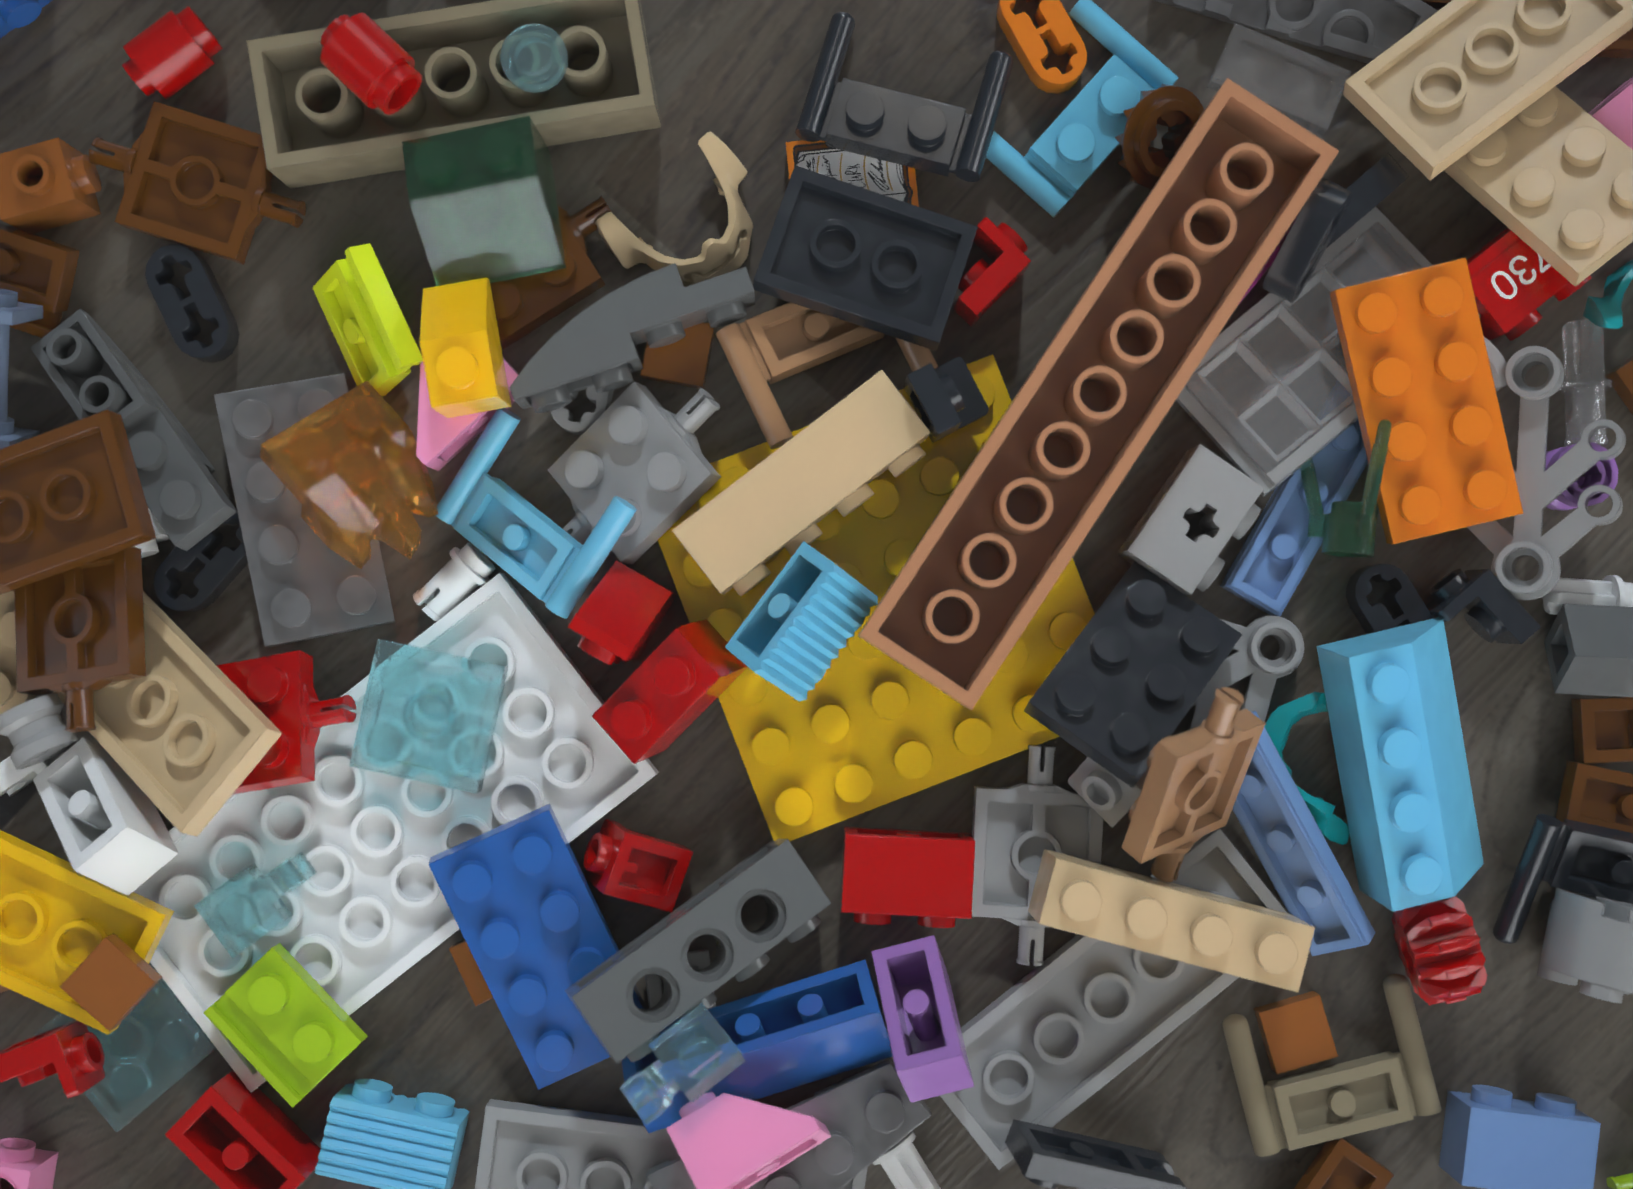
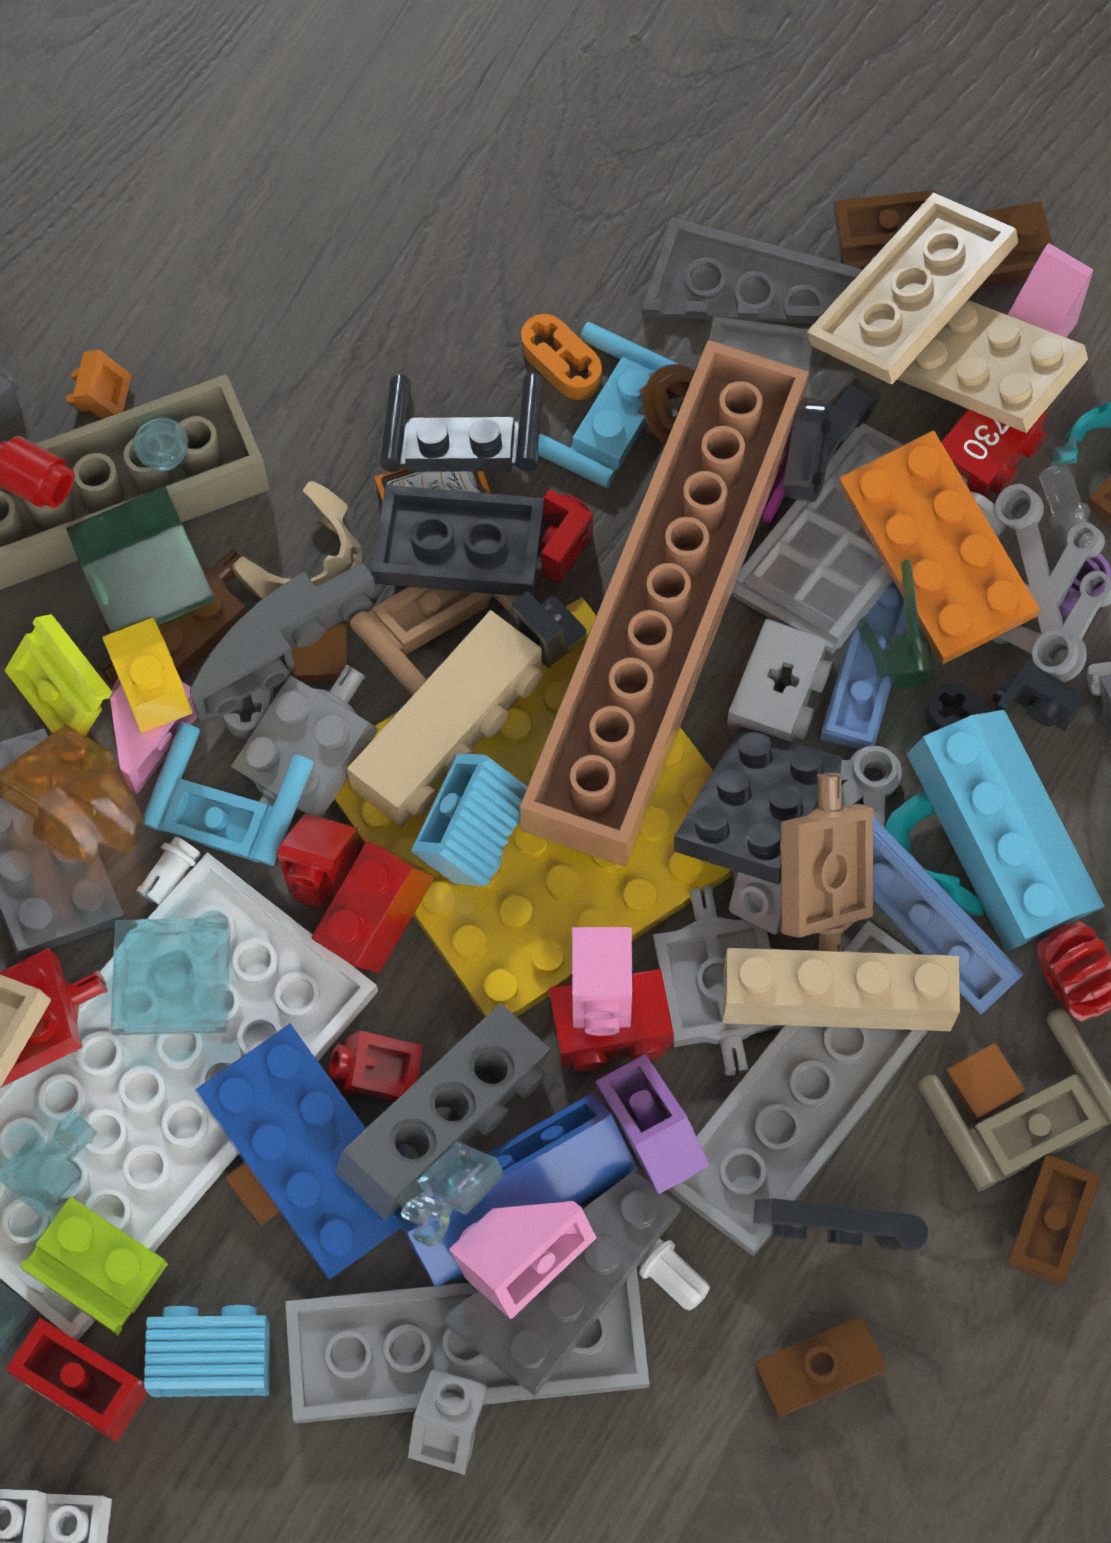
camera: 10 degrees left, 20 degrees down
(906, 869) = (602, 979): none -> bright pink brick

